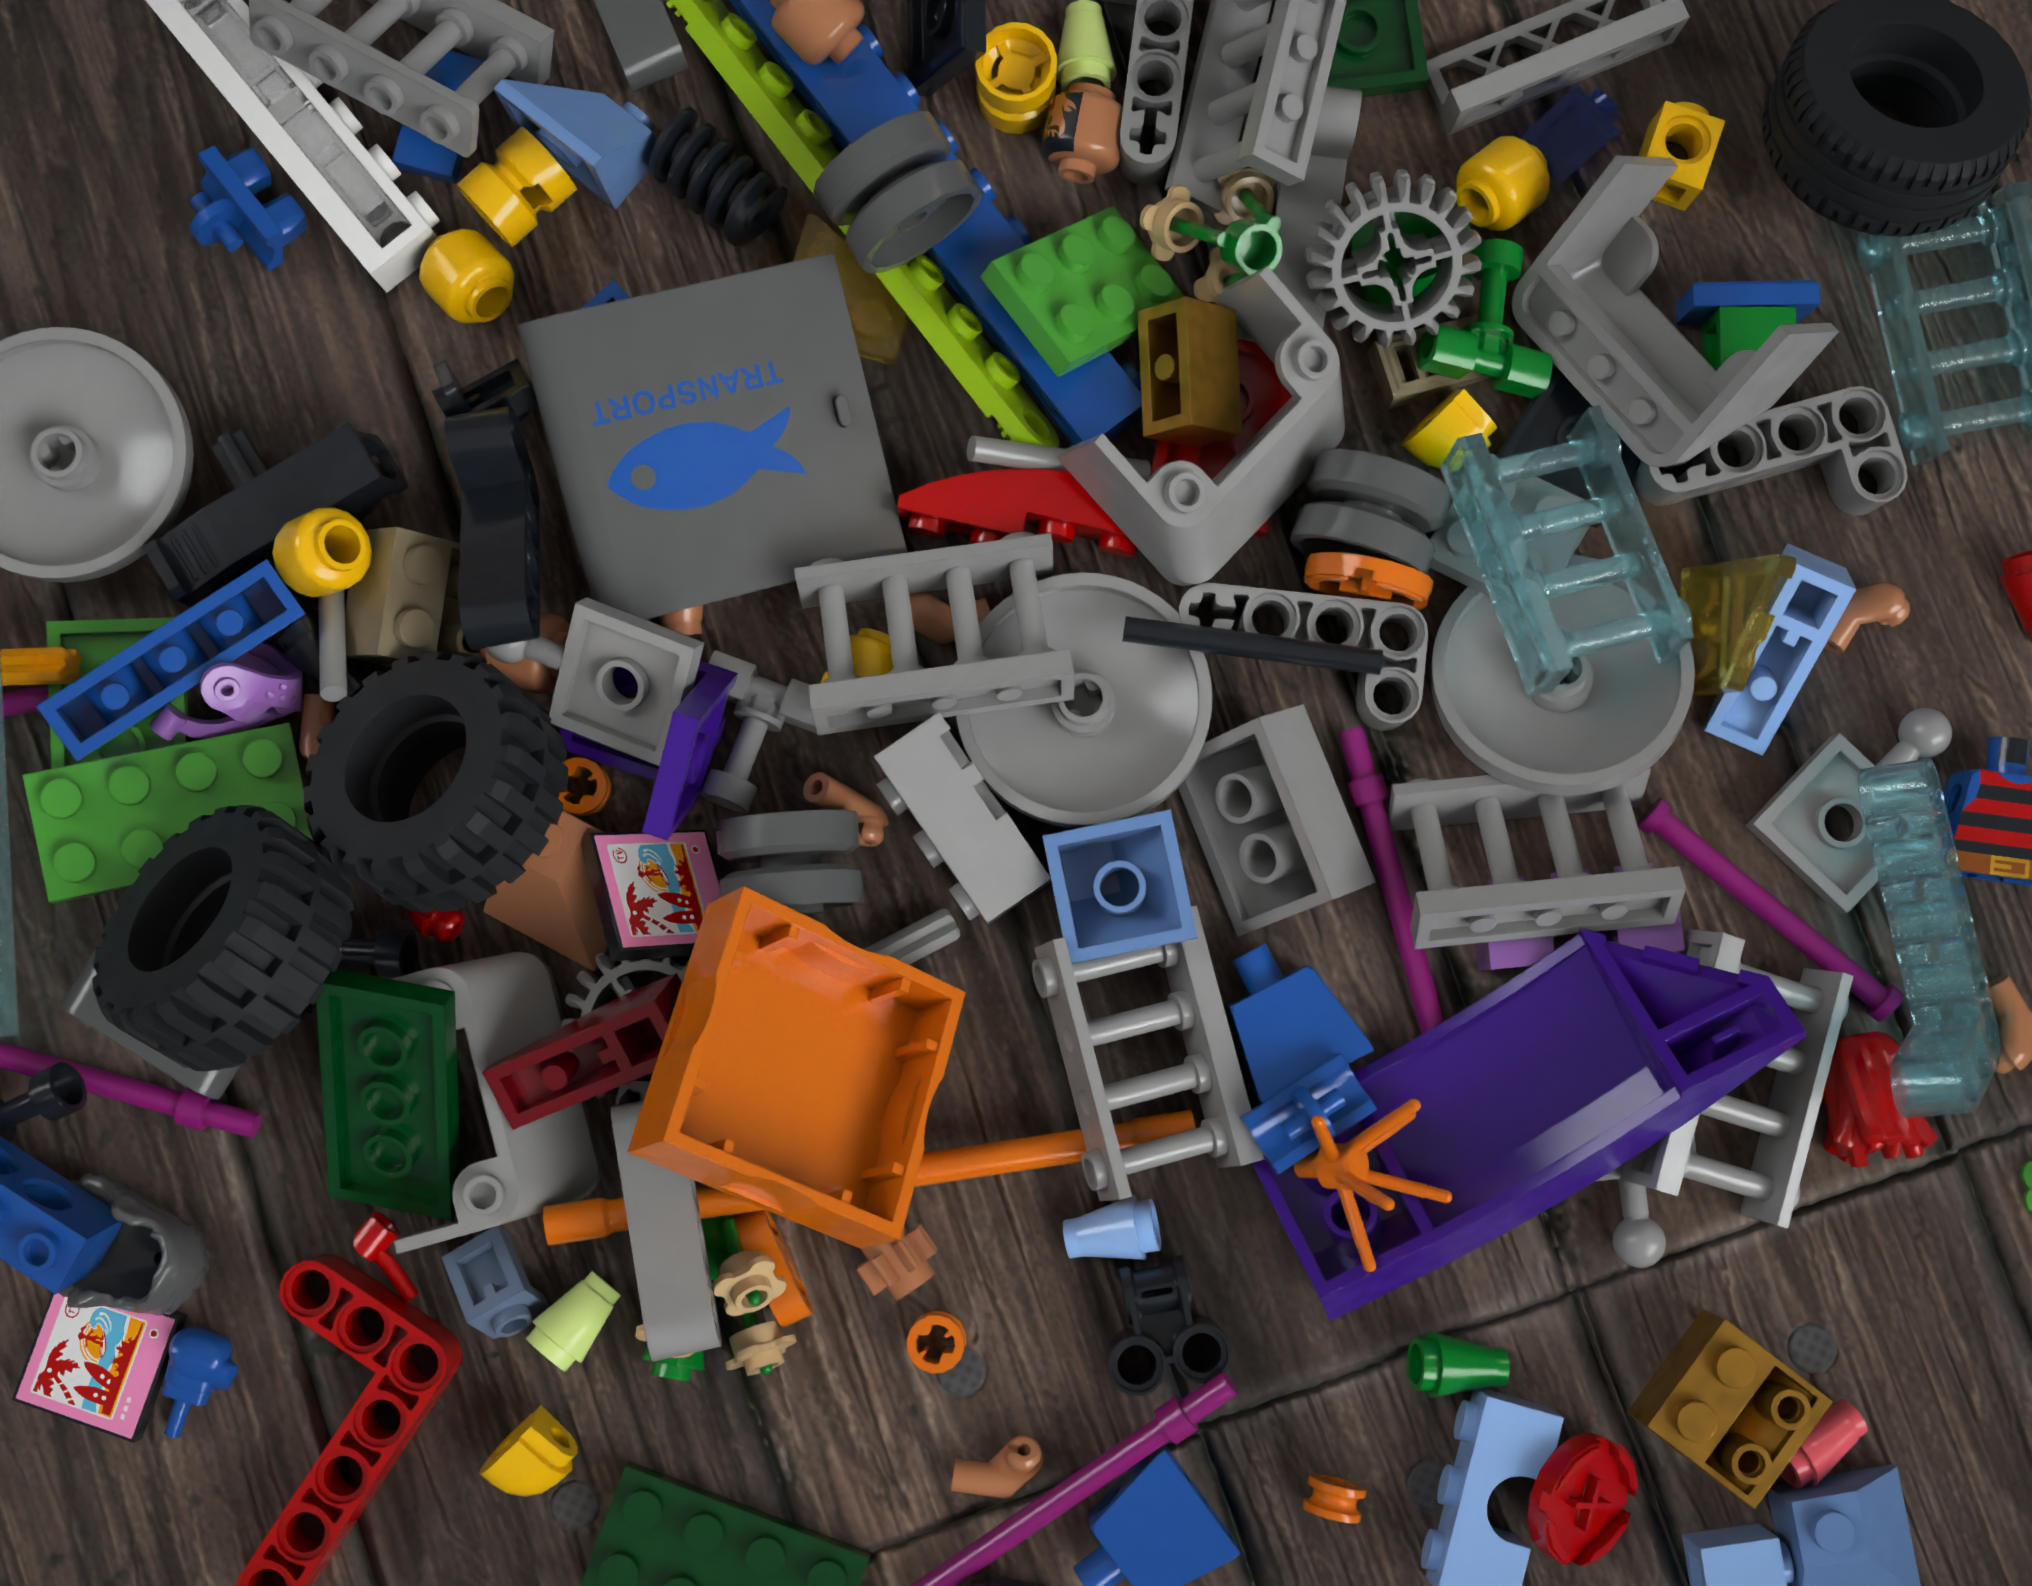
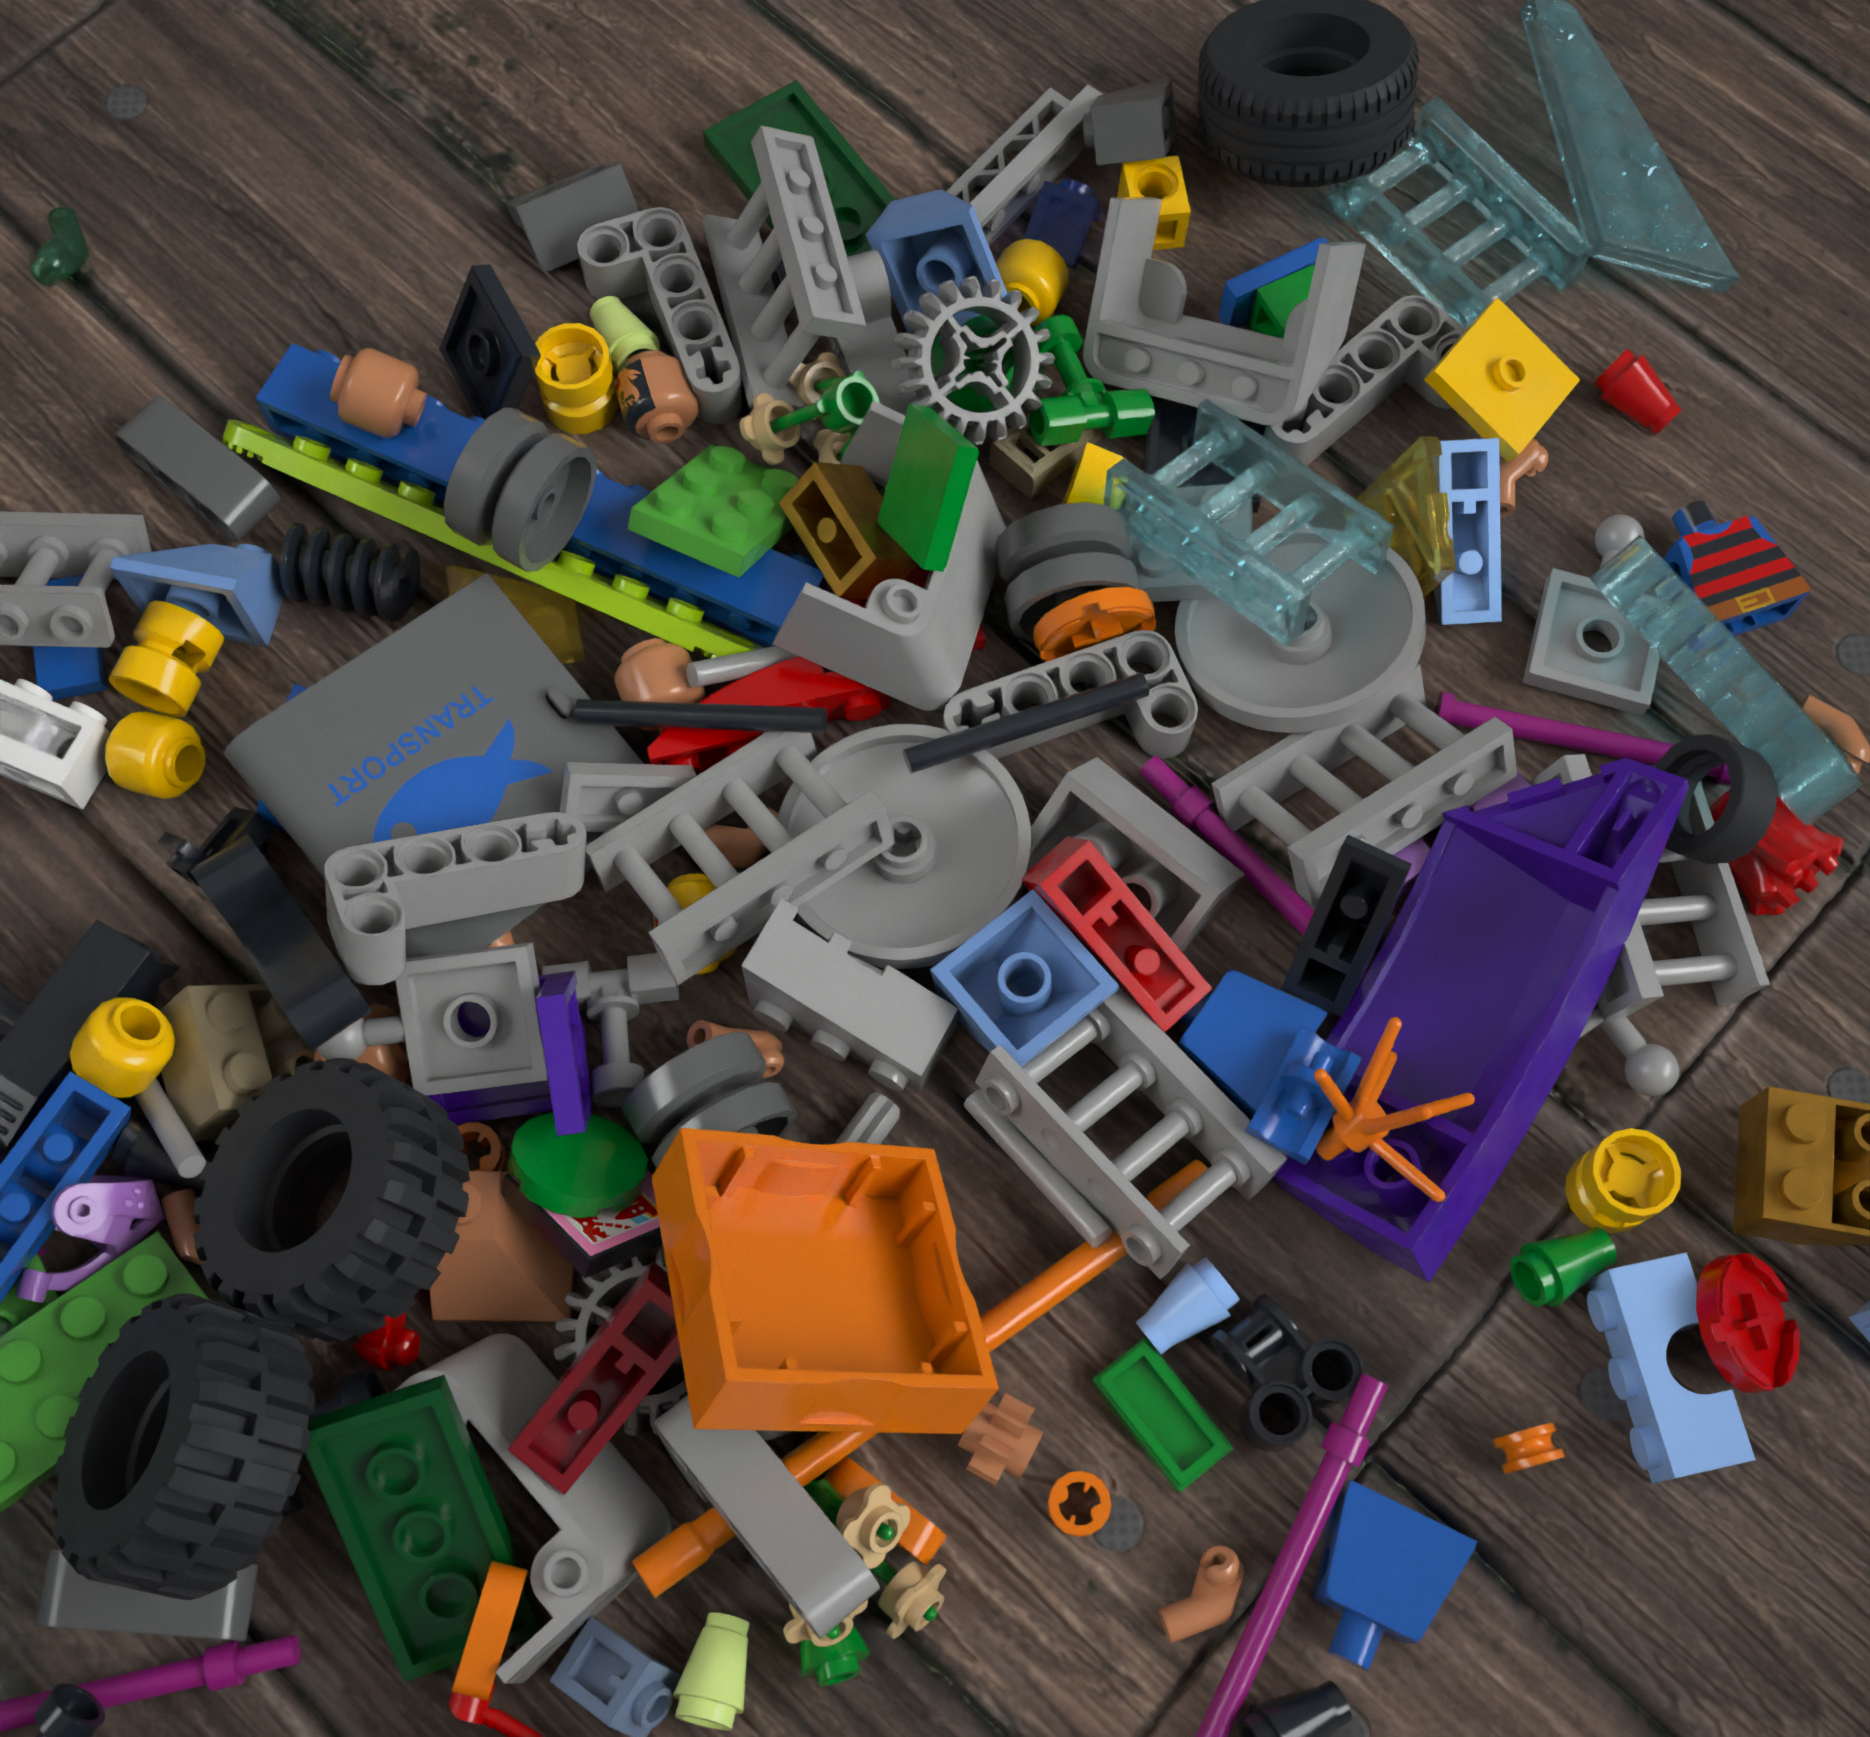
camera: 30 degrees left, 15 degrees down
(407, 1202) = (489, 1630): none -> orange beam
(651, 869) = (577, 1170): none -> green tile
(747, 561) = (441, 878): none -> light grey beam
(852, 527) = (614, 792): none -> light grey plate
(939, 431) = (656, 674): none -> nougat head
(960, 493) = (701, 716): none -> black bar
(1044, 1306) = (1161, 1415): none -> green tile
(1050, 1059) = (1040, 1171): none -> light grey bar
(1224, 882) = (1117, 930): none -> red slope
(1268, 386) = (927, 487): none -> green tile
(1417, 117) = (929, 243): none -> medium blue slope
(1422, 995) = (1346, 925): none -> black slope
(1549, 1327) = (1632, 1169): none -> yellow wheel
(1701, 62) = (1132, 123): none -> dark grey slope
(1863, 1068) = (1749, 803): none -> black tyre
(1903, 522) = (1502, 379): none -> yellow plate

